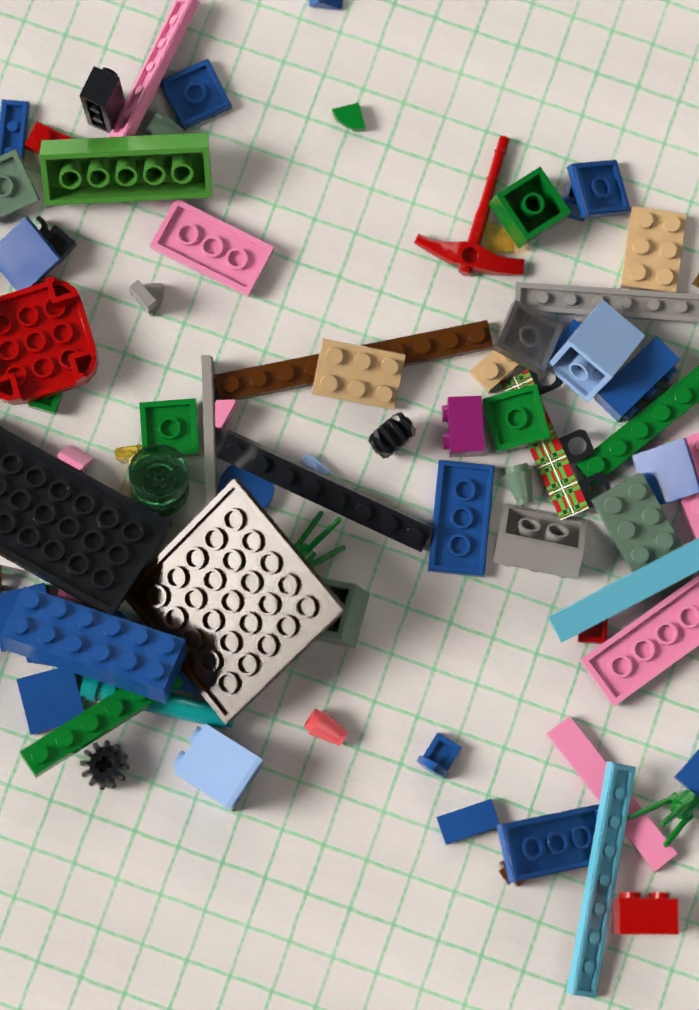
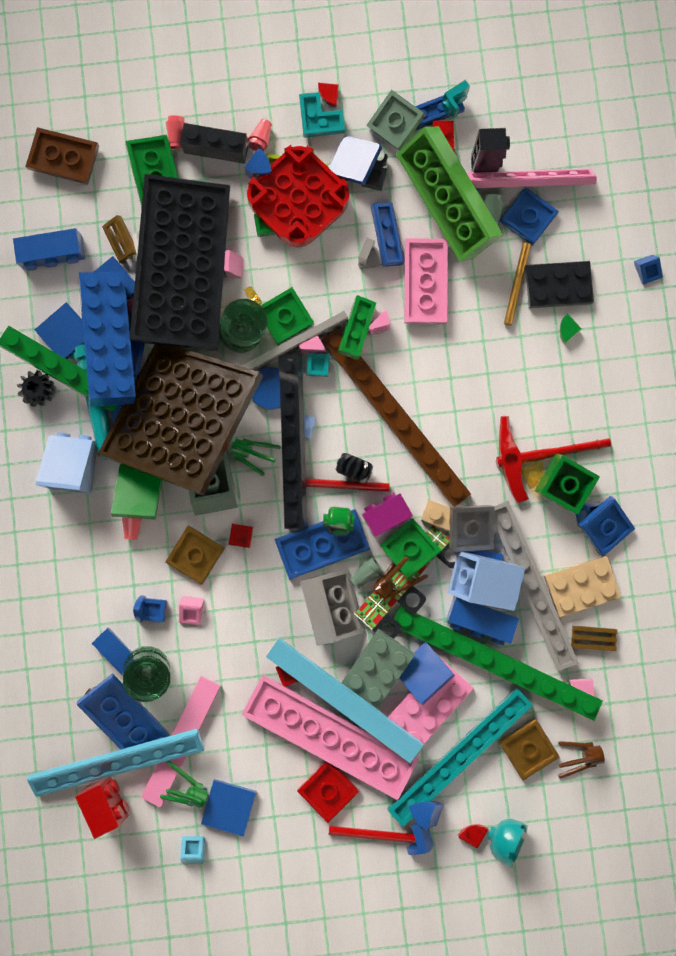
camera: 70 degrees right, 5 degrees up
(13, 106) = (454, 97): none -> teal bracket
(133, 263) = (387, 234): none -> blue tile
(227, 351) = (357, 327): none -> green plate
(236, 321) = (381, 324): none -> bright pink slope
(247, 419) = (318, 365): none -> teal plate
(268, 147) = (517, 284): none -> pearl gold bar
(293, 101) = (559, 284): none -> black plate
(295, 702) = (135, 494): none -> green tile
(358, 373) = (386, 423): tan plate -> none
(400, 672) = (195, 555): none -> pearl gold tile
(404, 608) = (241, 535): none -> red tile
(406, 454) = (352, 485): none -> red bar
(446, 482) = (338, 521): none -> green head
(464, 709) = (190, 610): none -> bright pink slope
(527, 781) = (144, 685): none -> clear green wheel
(545, 467) = (385, 586): none -> reddish brown plant

